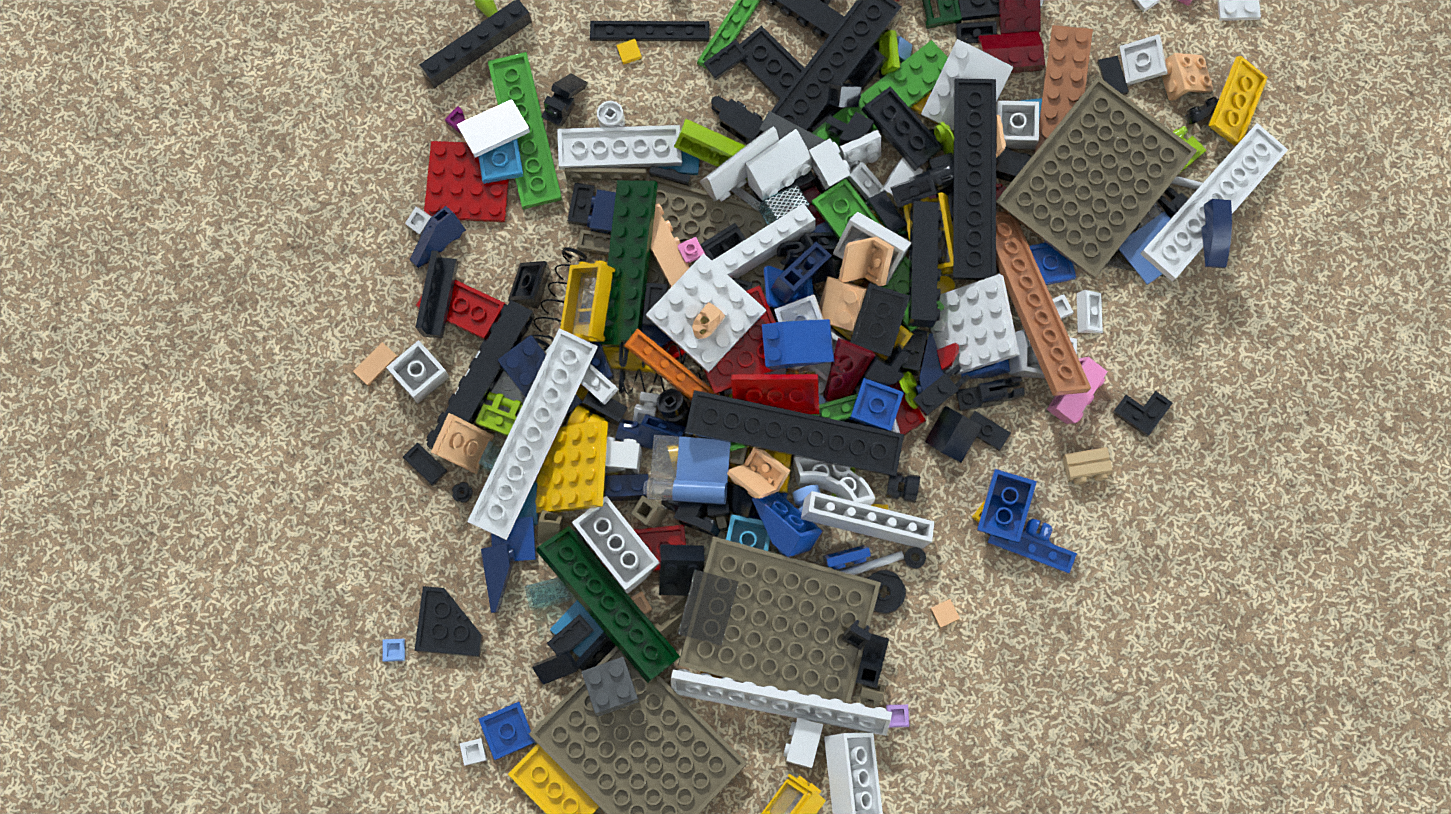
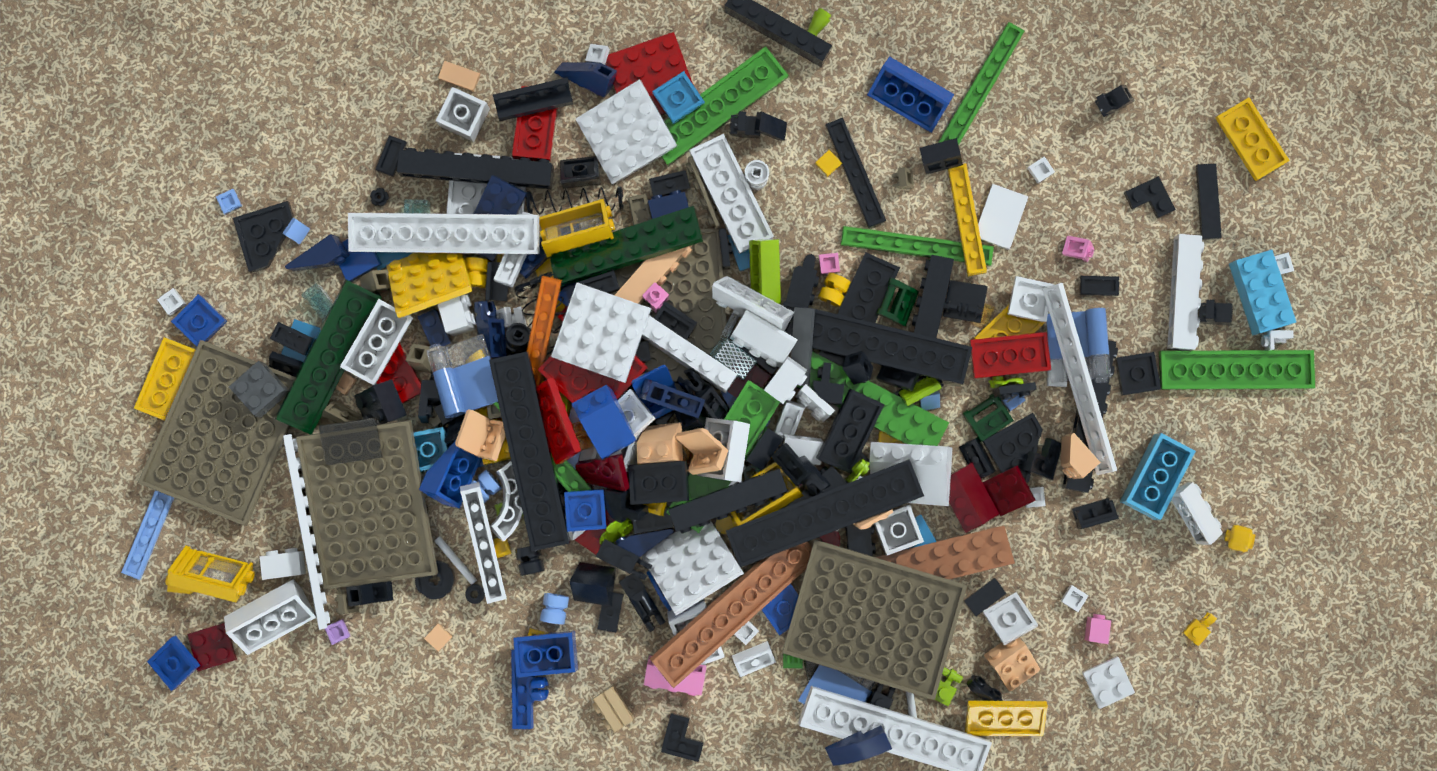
camera: 60 degrees right, 10 degrees up
(455, 118) = (703, 44): magenta tile -> none
(458, 590) = (296, 231): none -> light blue tile
(461, 443) = (412, 178): light nougat tile -> none
(493, 128) = (702, 79): white tile -> none
(498, 420) = (447, 197): lime plate -> none
(510, 222) = (626, 132): none -> white plate
(555, 667) = (262, 337): black tile -> none
(707, 321) = (588, 337): light nougat rock -> none
(725, 59) = (853, 250): black plate -> none
(728, 88) = (829, 263): none -> bright pink plate
(754, 91) = (834, 289): none -> yellow wheel
(797, 37) = (902, 304): none -> dark green plate
(838, 559) = (448, 537): blue plate -> none
(857, 636) = (380, 573): black tile -> none
(948, 355) = (657, 553): red tile -> none
(962, 481) = (554, 608): none -> light blue wheel
(1105, 276) = (792, 662): none -> bright green tile

